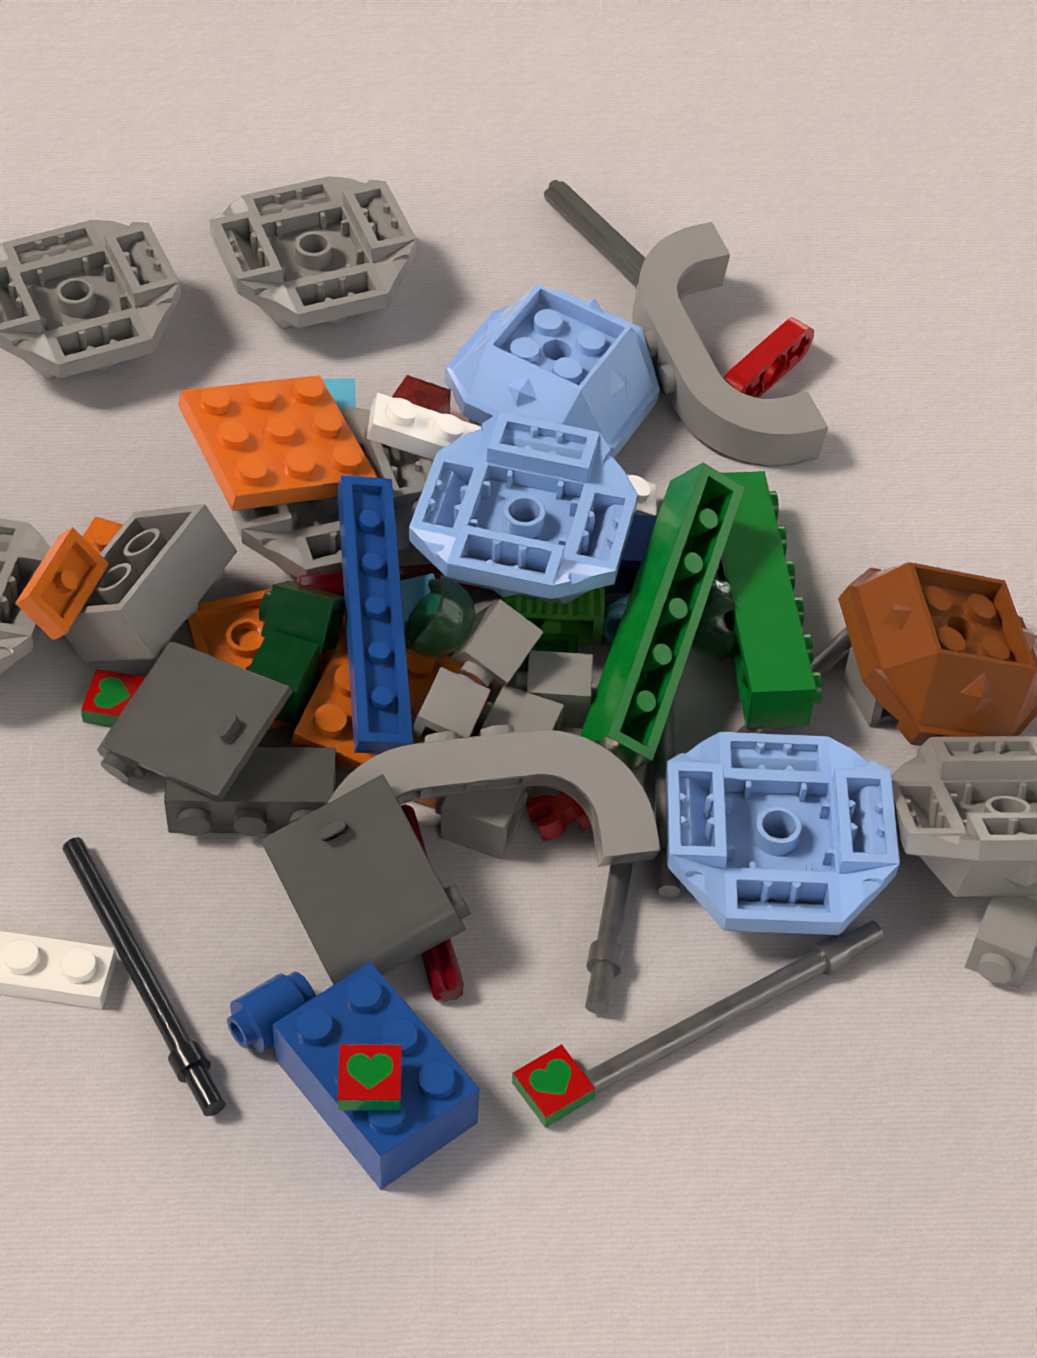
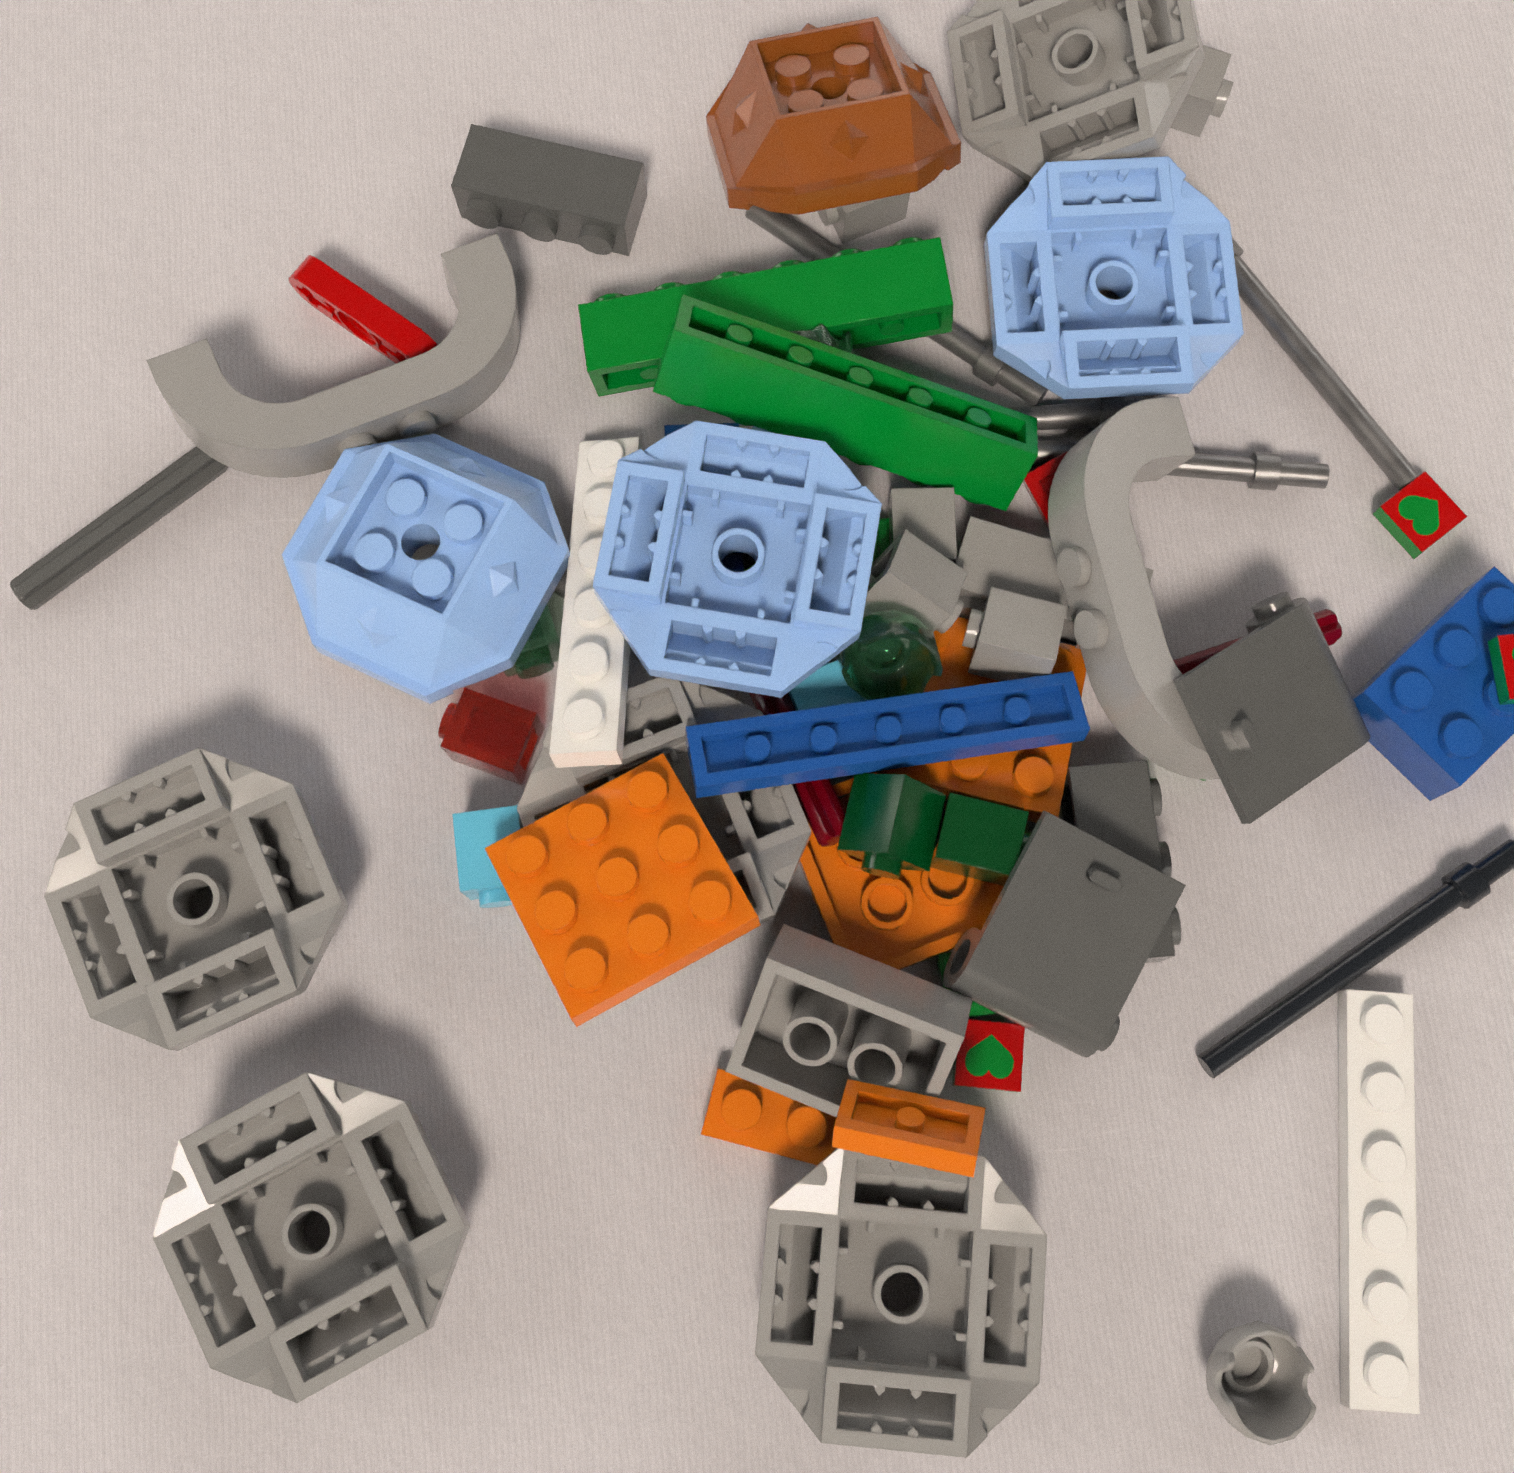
camera: 90 degrees left, 25 degrees up
(263, 1006) = (1399, 804): blue brick -> none
(874, 476) = (549, 190): none -> dark grey brick

